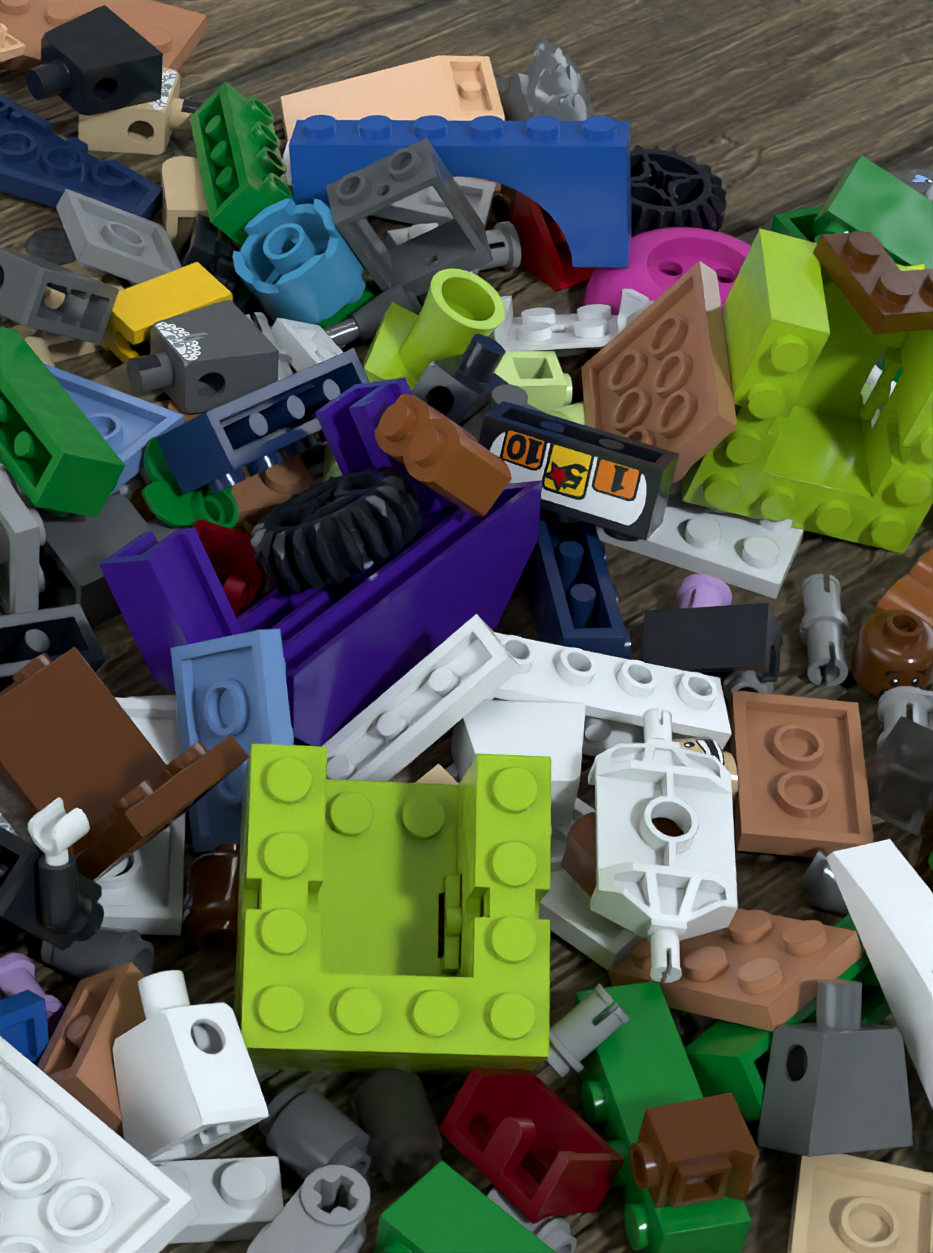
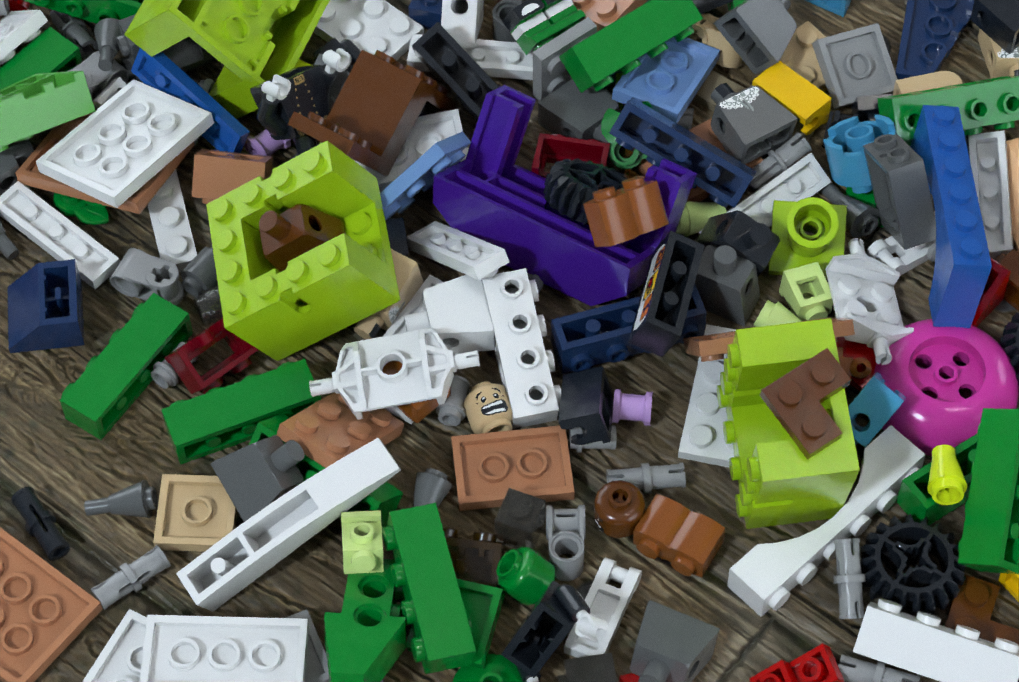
camera: 90 degrees right, 15 degrees up
(183, 1074) = (188, 195): white torso -> none
(367, 911) = (295, 233): none -> reddish brown torso
(578, 1035) = (268, 357): light grey pin -> none
(694, 1152) = (195, 407): reddish brown window -> none

